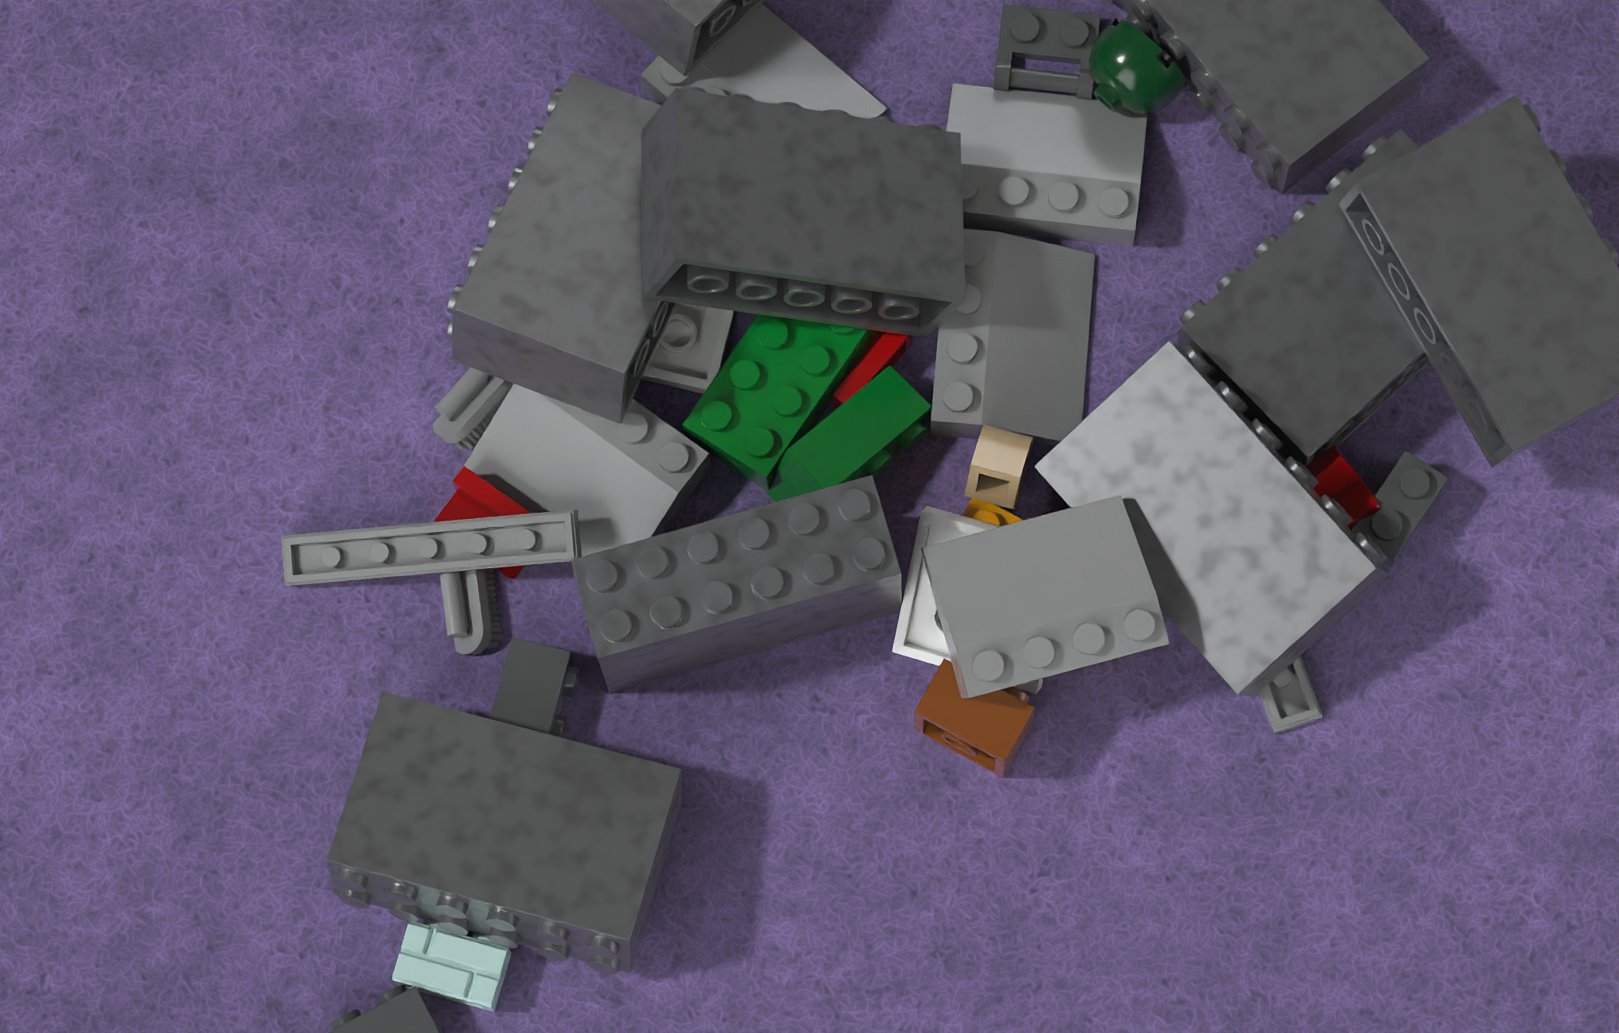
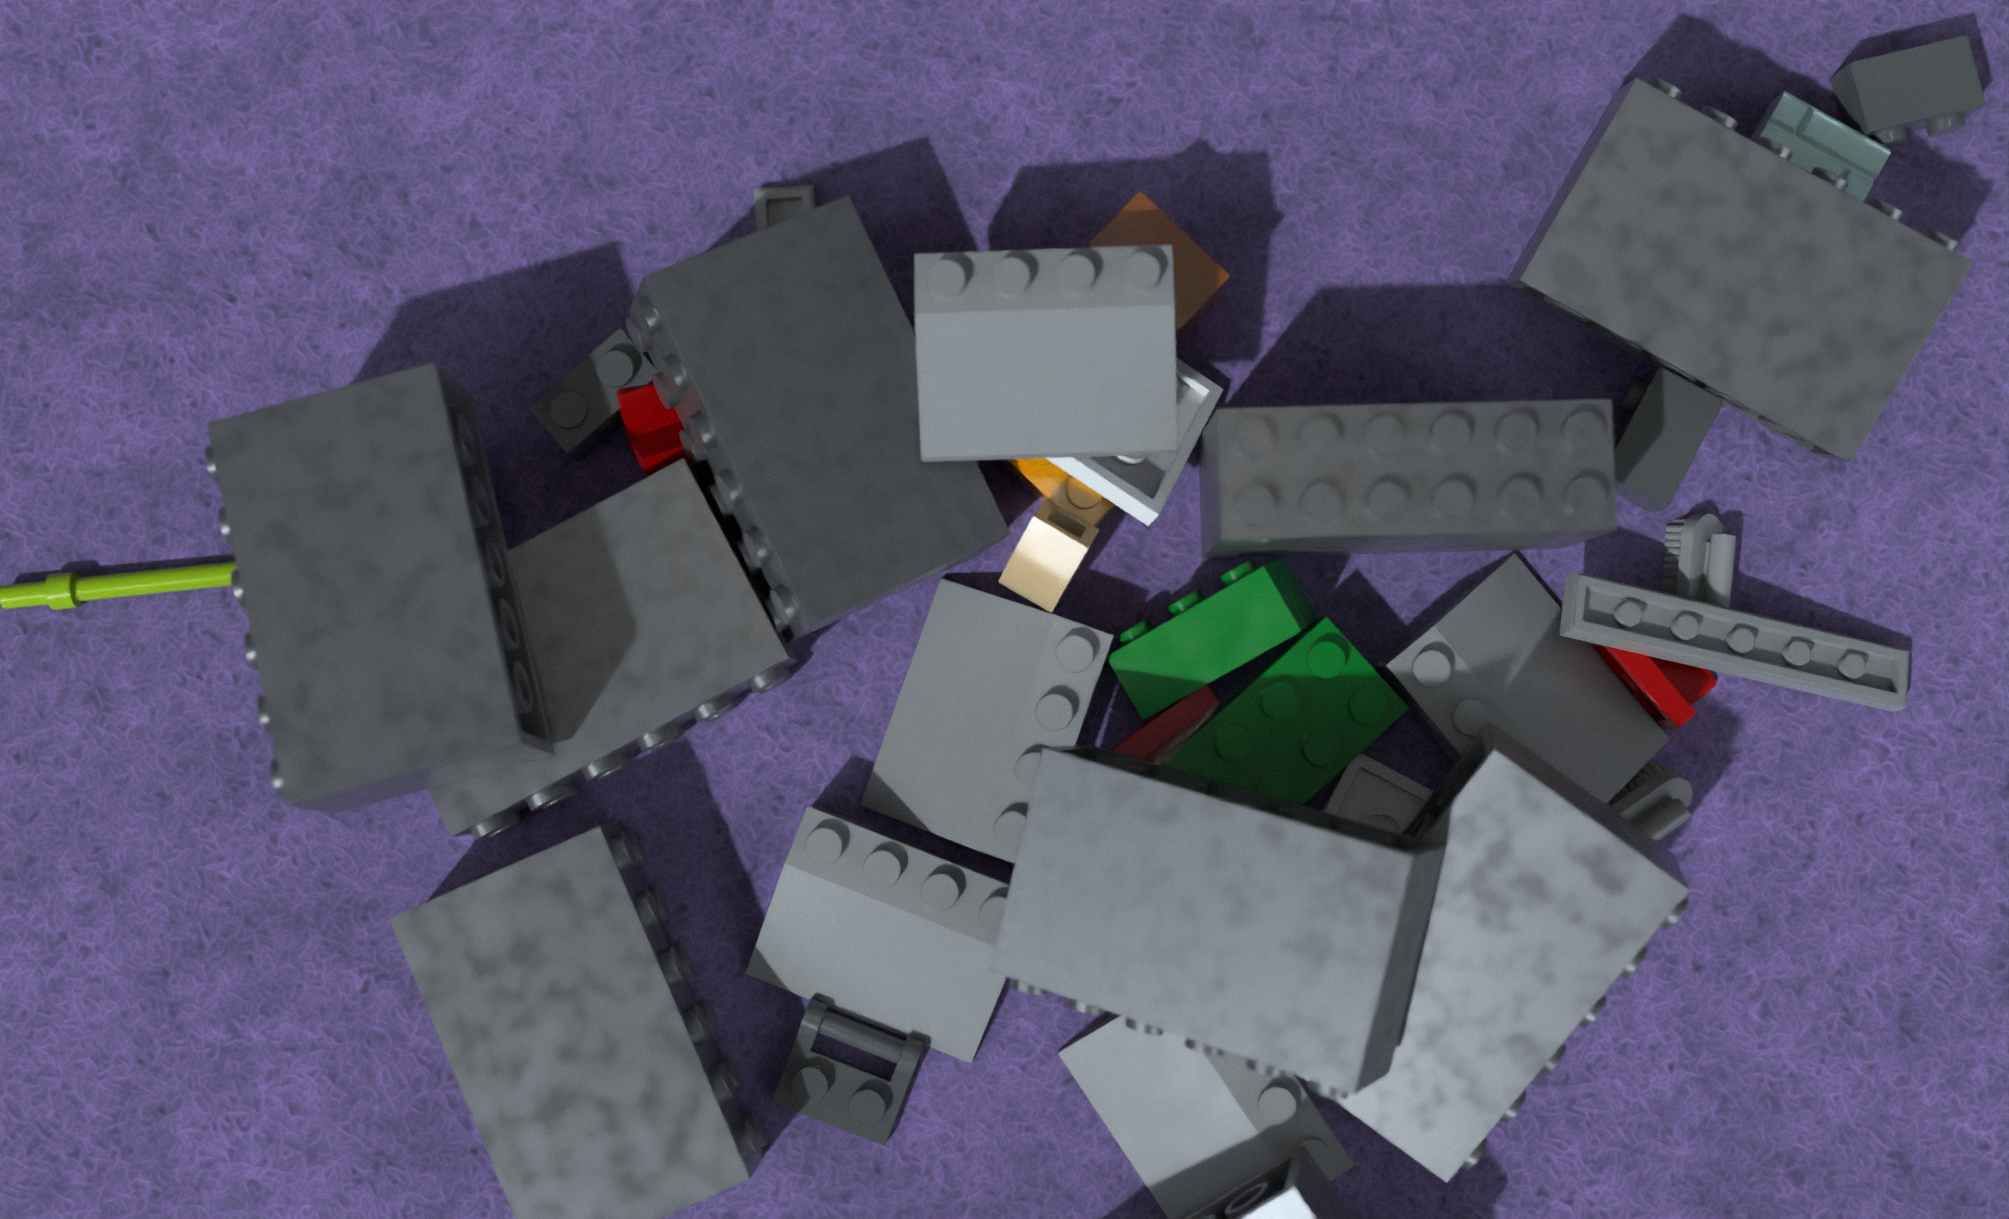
camera: 170 degrees left, 10 degrees up
(1132, 71) = (755, 1011): dark green cylinder -> none

